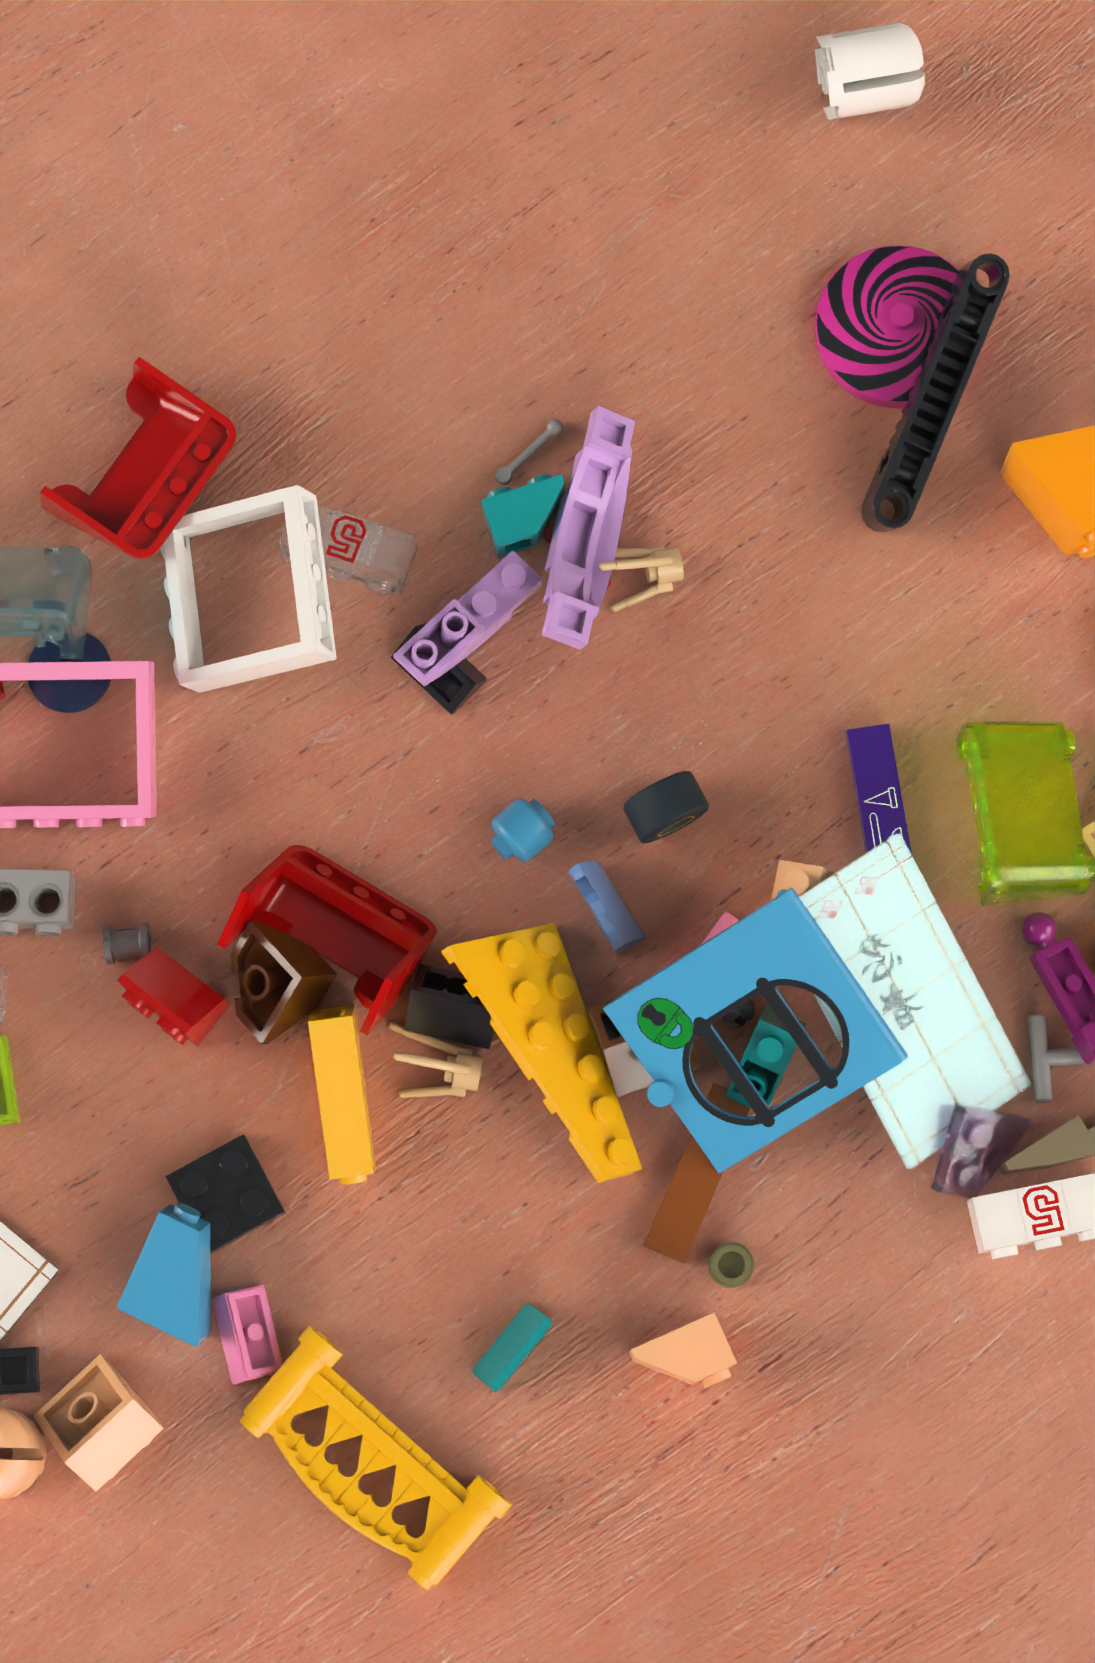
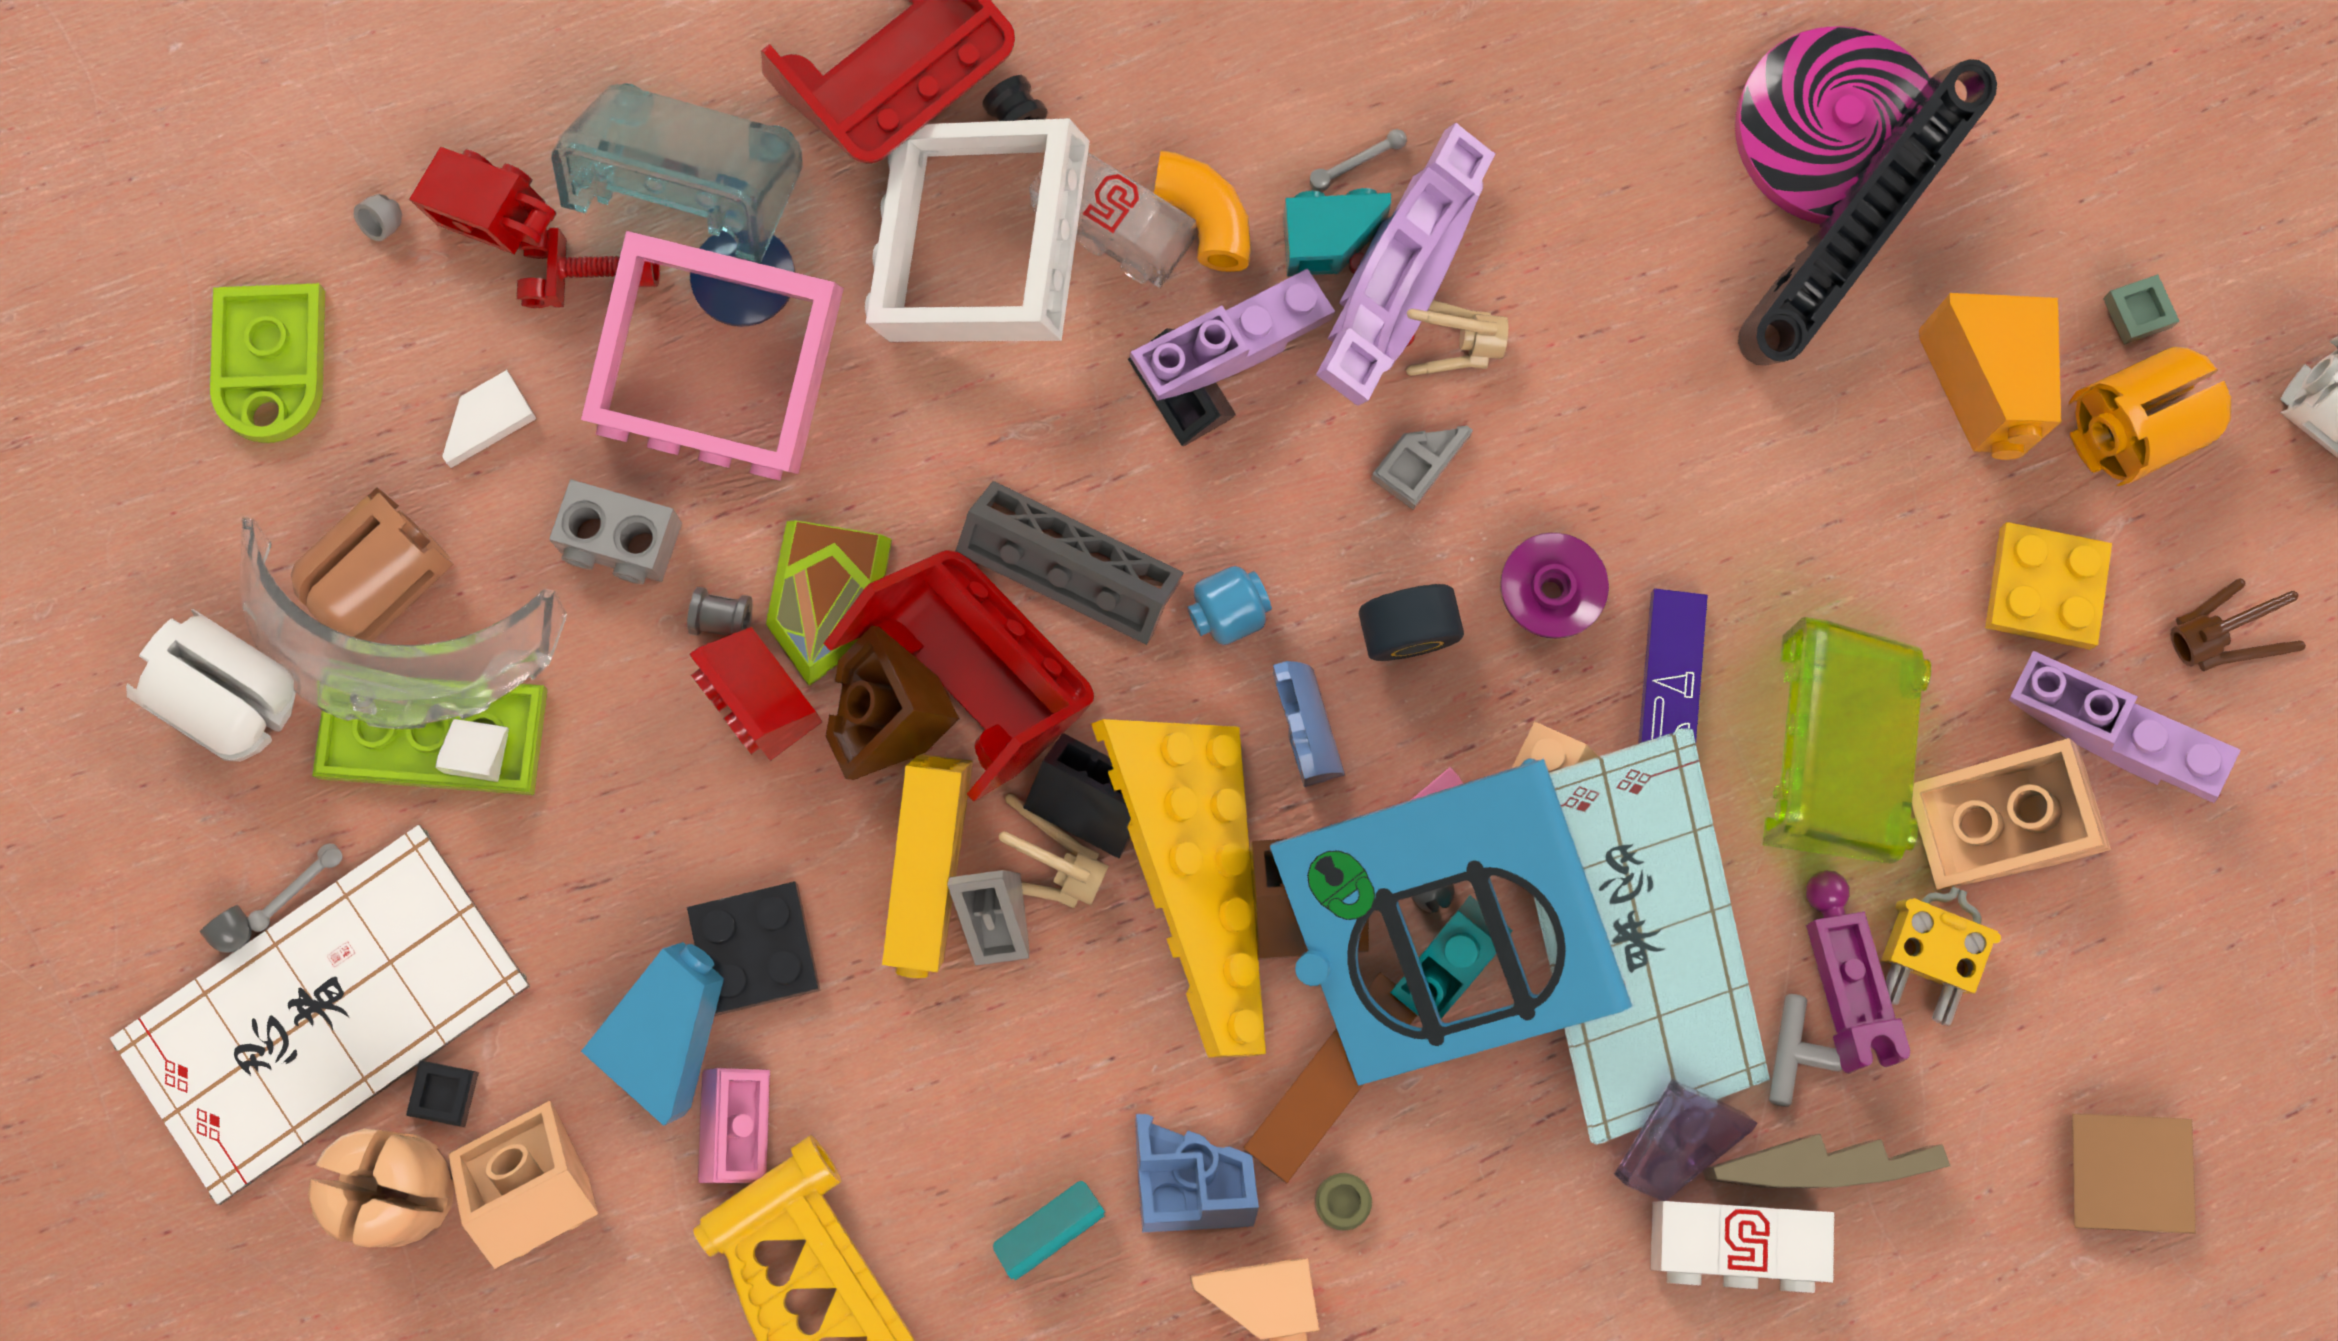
camera: 10 degrees right, 0 degrees up
(198, 900) = (814, 587): none -> tile
(247, 479) = (1013, 102): none -> black wheel
(386, 834) = (1064, 566): none -> dark grey fence
(403, 1119) = (992, 915): none -> light grey slope
(424, 518) = (1214, 206): none -> light orange cylinder
(611, 1281) = (1191, 1182): none -> medium blue slope
(639, 678) = (1418, 462): none -> light grey tile
(775, 728) = (1569, 565): none -> magenta dish

